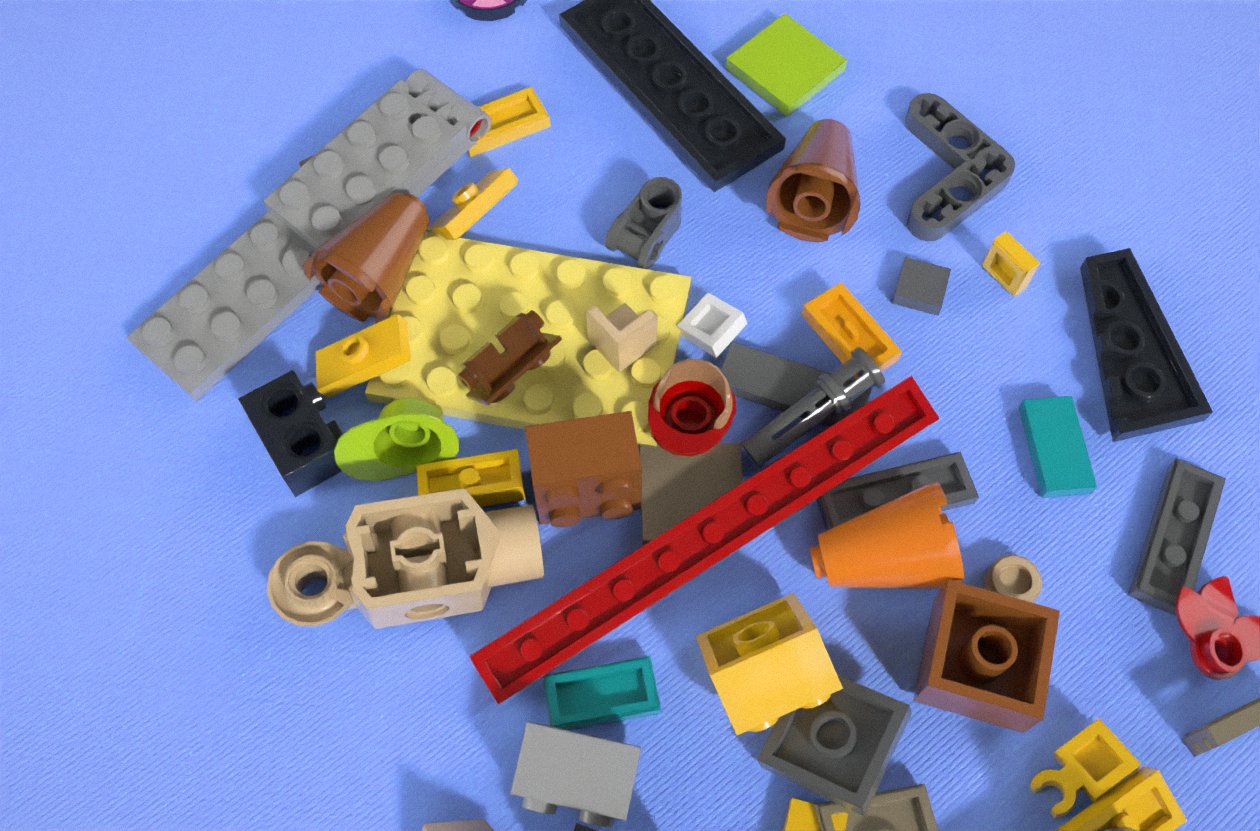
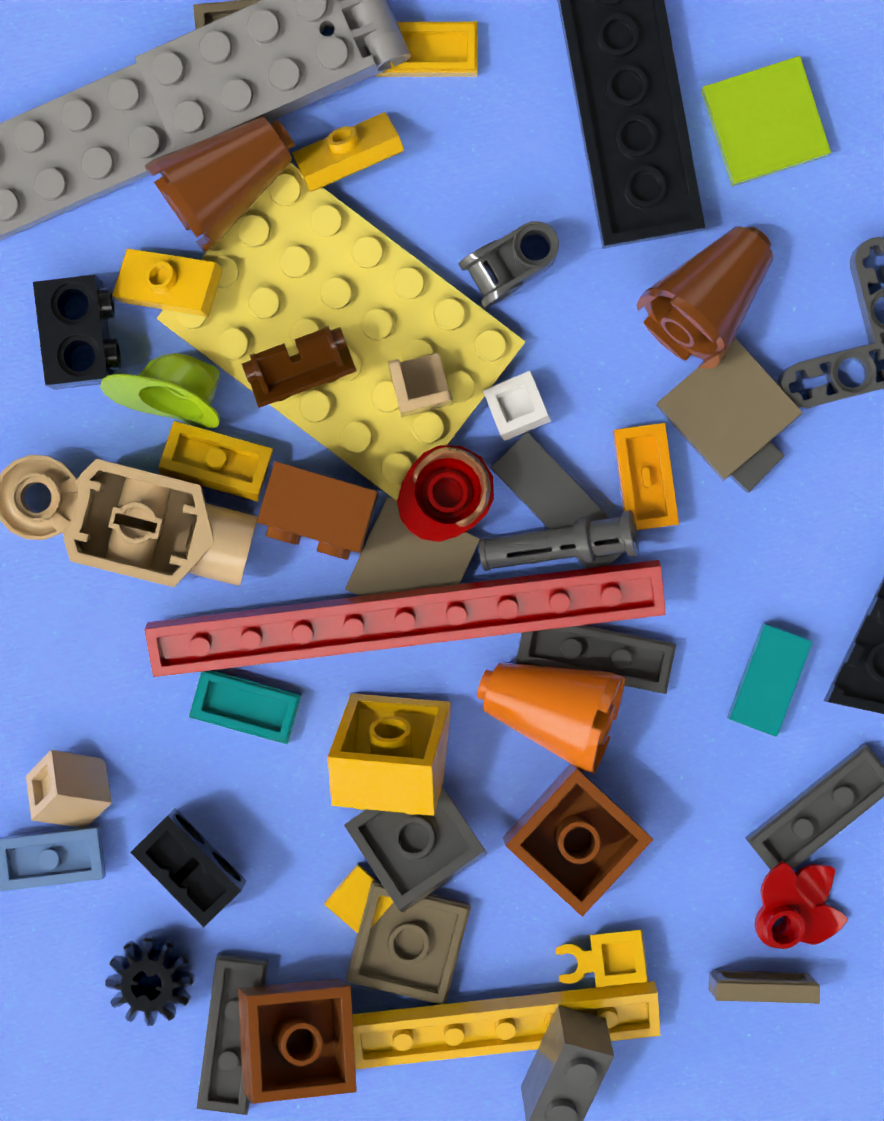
camera: 25 degrees right, 25 degrees up
(575, 773) = (191, 767): light grey brick -> none
(886, 257) = (729, 410): none -> dark tan tile
(1010, 263) = (842, 481): yellow tile -> none
(1014, 577) = (649, 781): tan tile -> none

